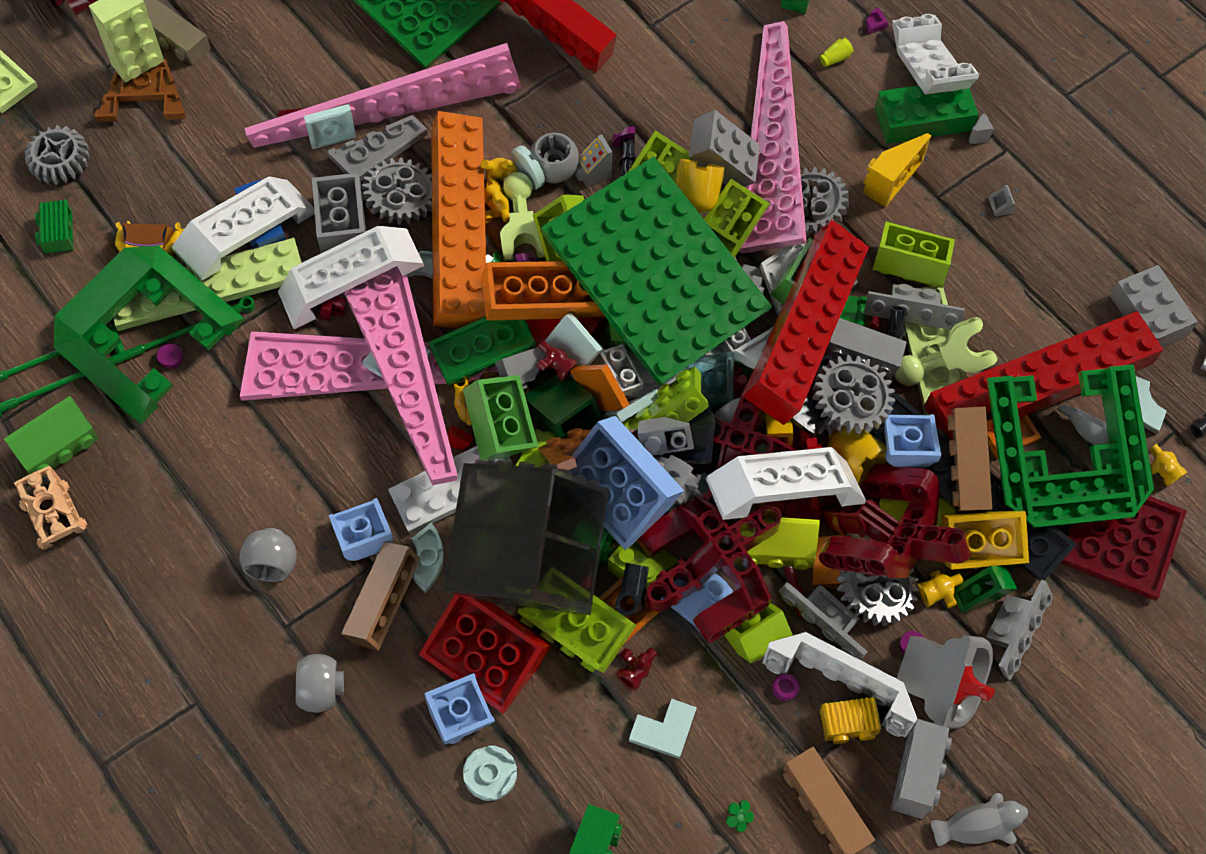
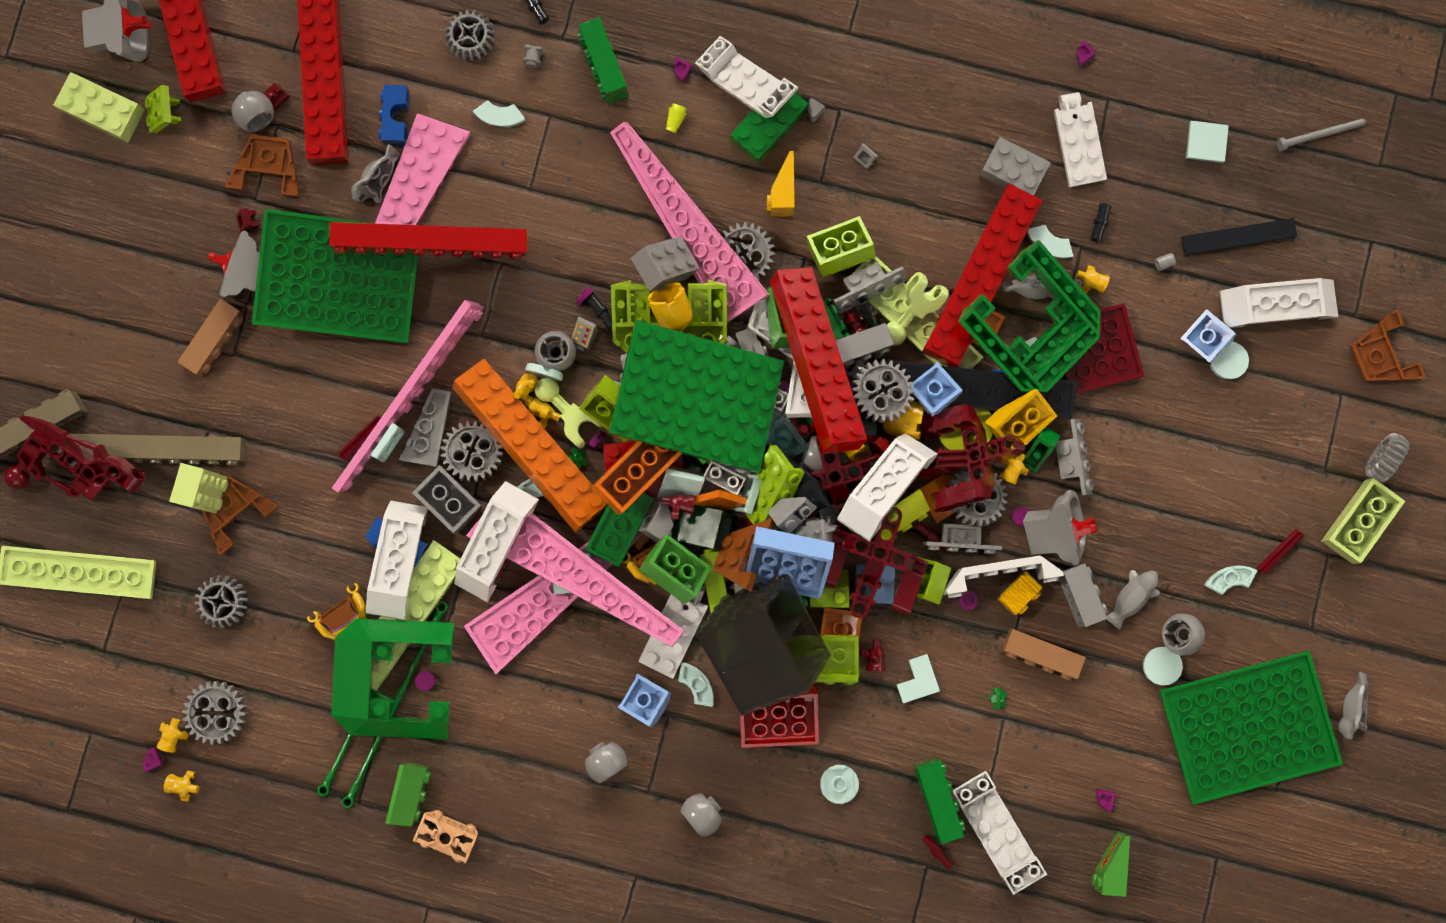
camera: 35 degrees left, 20 degrees up
(55, 226) = (269, 653): green brick -> none
(381, 596) = (692, 732): medium nougat brick -> none
(458, 438) = (654, 595): red tile -> none
(458, 709) = (794, 764): light blue slope -> none
(632, 586) = (841, 616): black piece -> none
(971, 459) = (981, 377): medium nougat brick -> none

